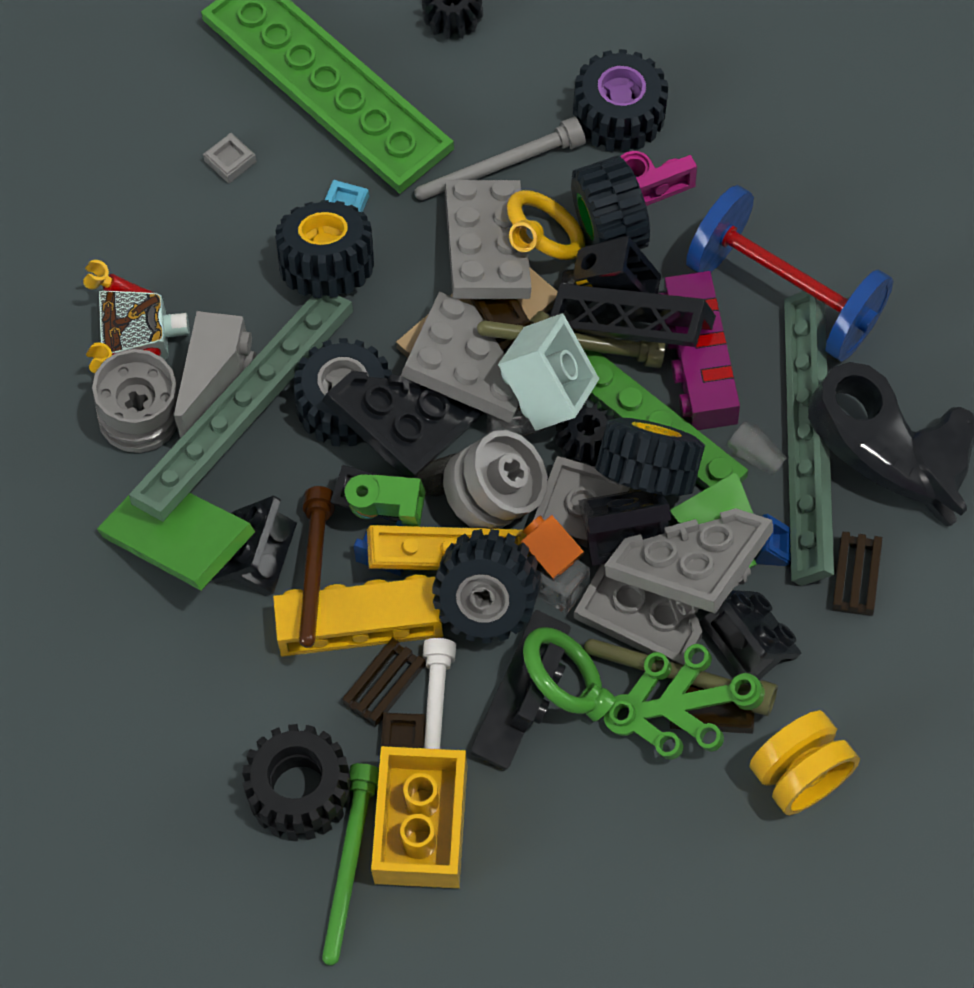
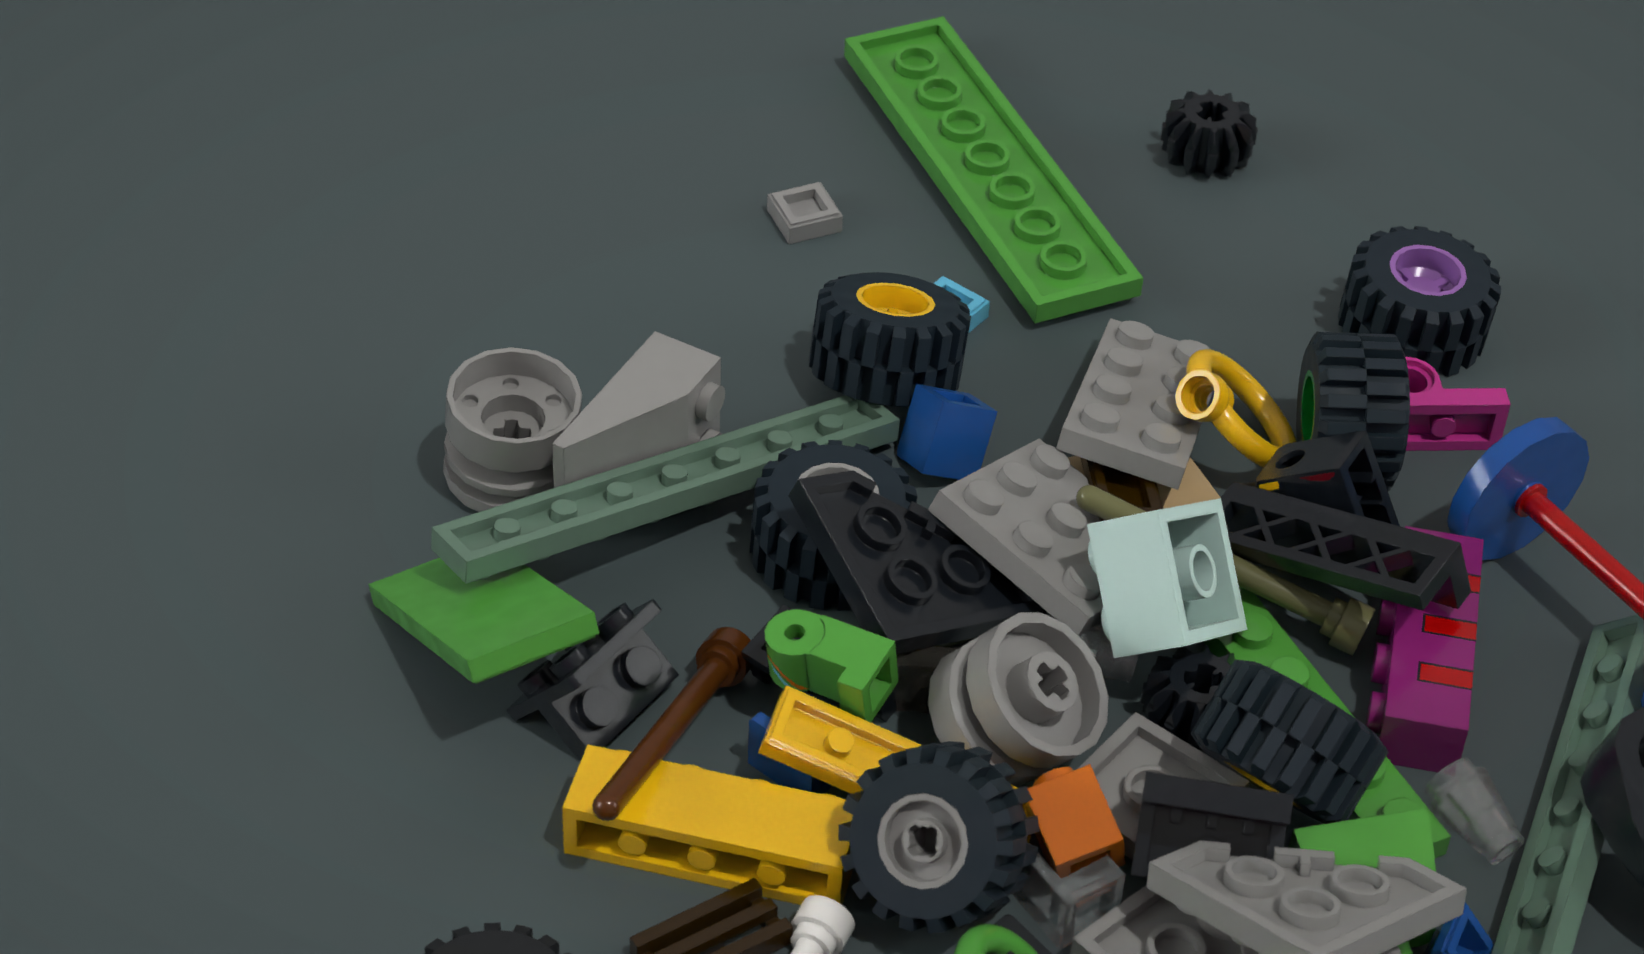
camera: 15 degrees right, 20 degrees down
(130, 317) = (559, 324): torso -> none
(381, 300) = (945, 432): none -> blue panel
(566, 135) = (1324, 317): light grey piece -> none

